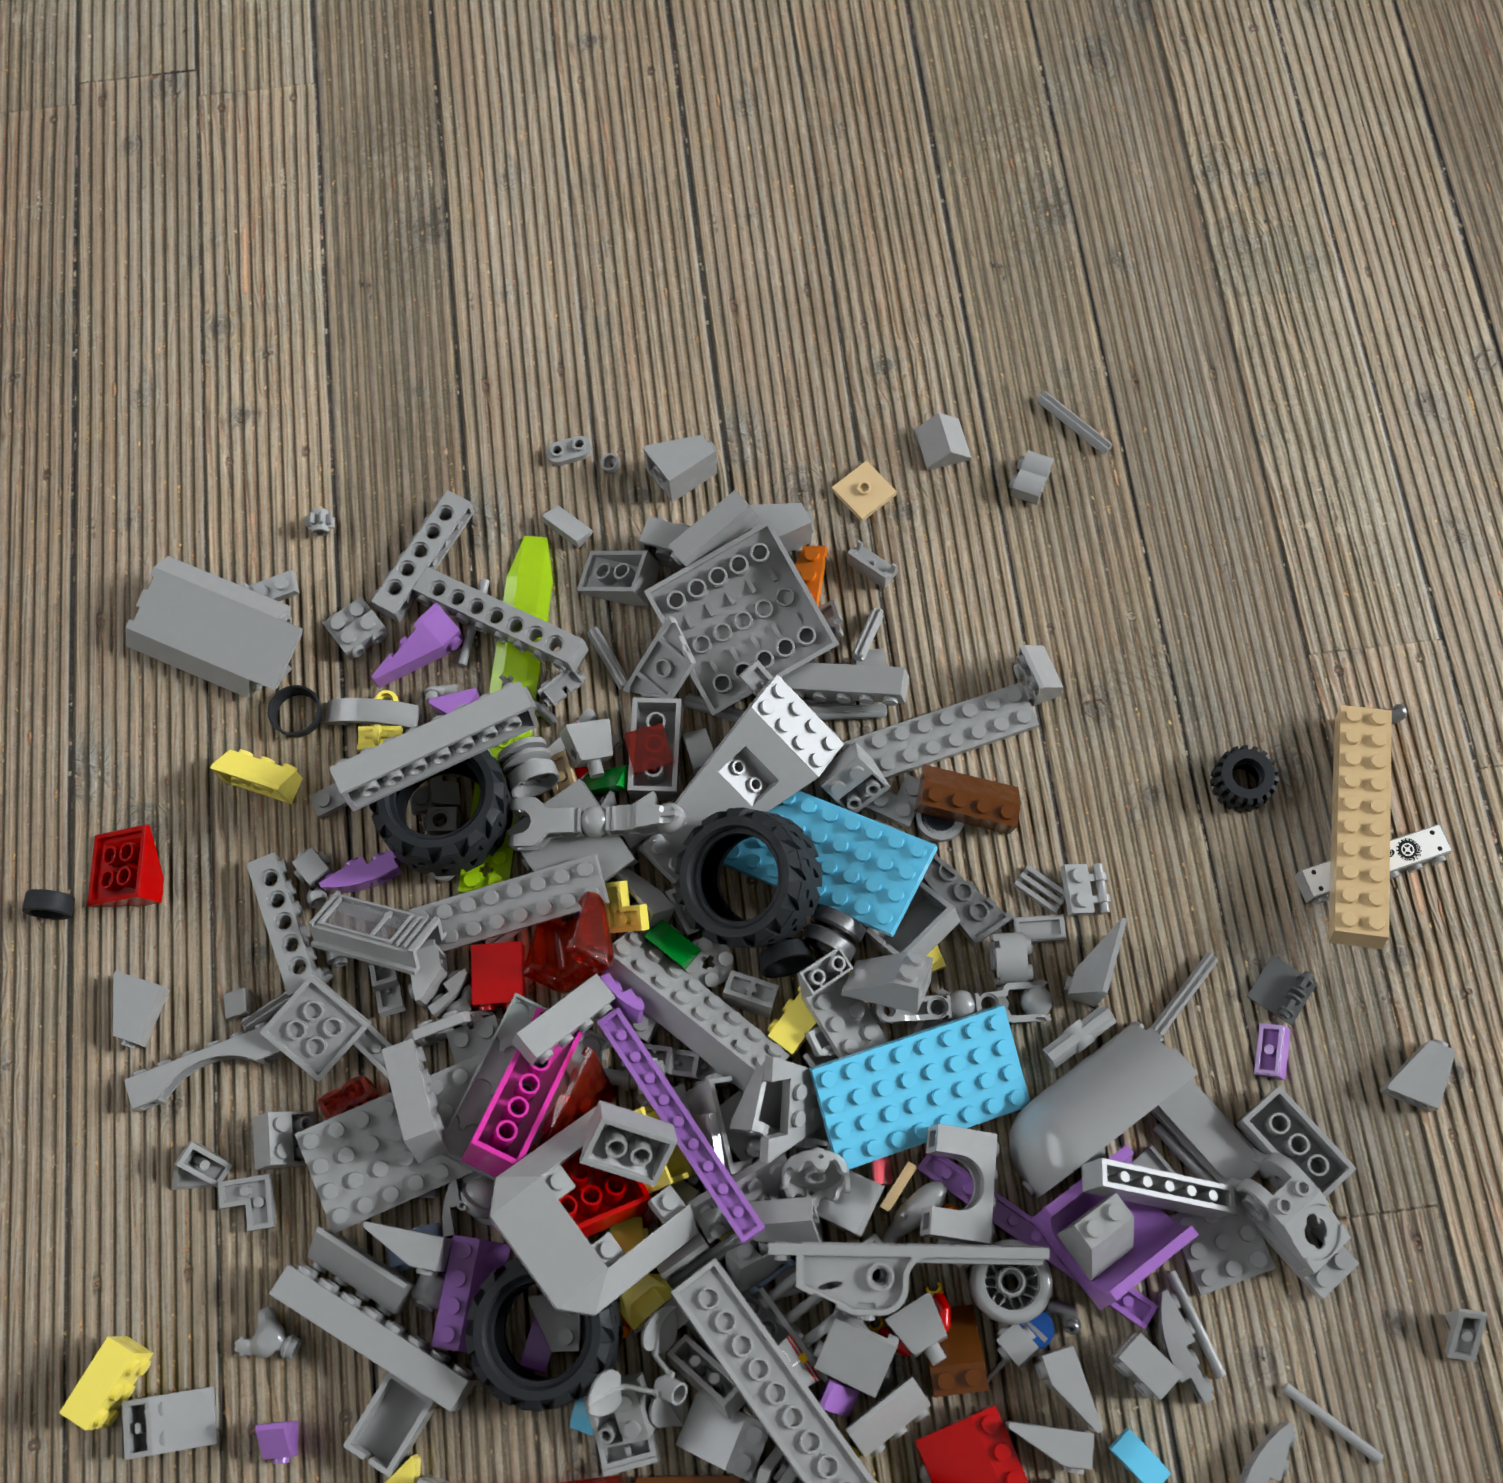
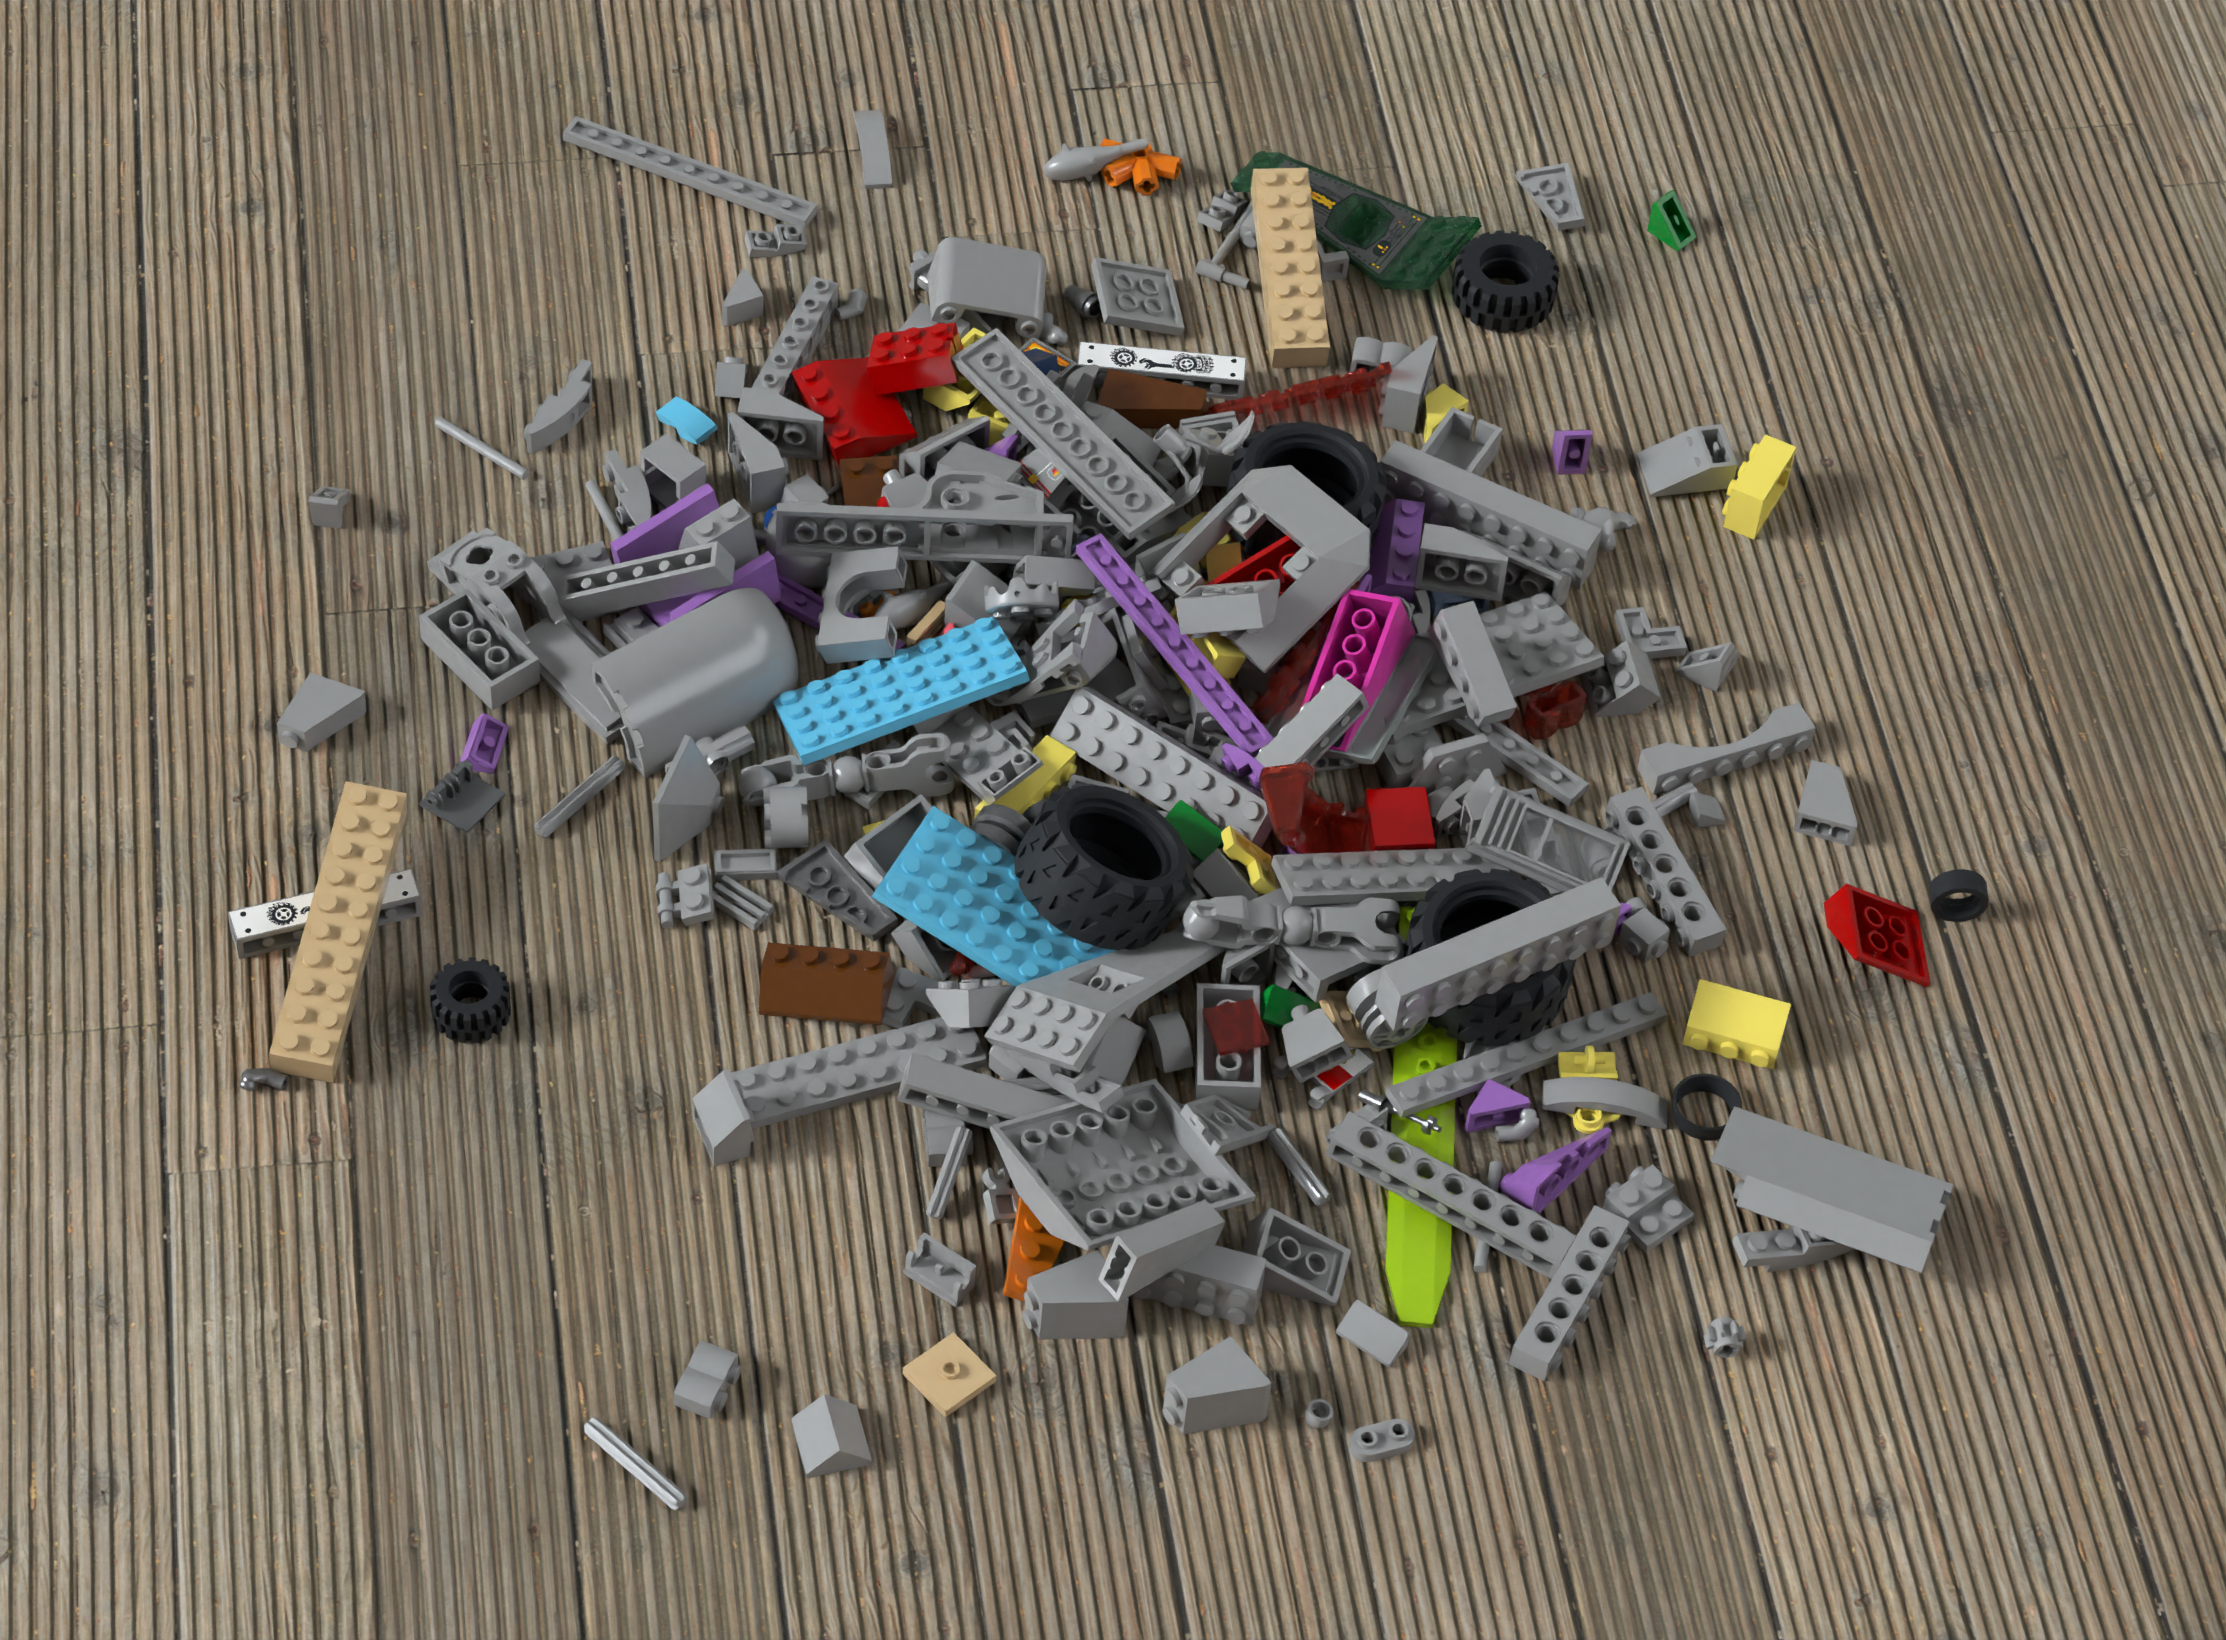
camera: 170 degrees right, 20 degrees down
(315, 1027) = (1603, 762): light grey plate -> none
(891, 980) = (938, 767): light grey slope -> none

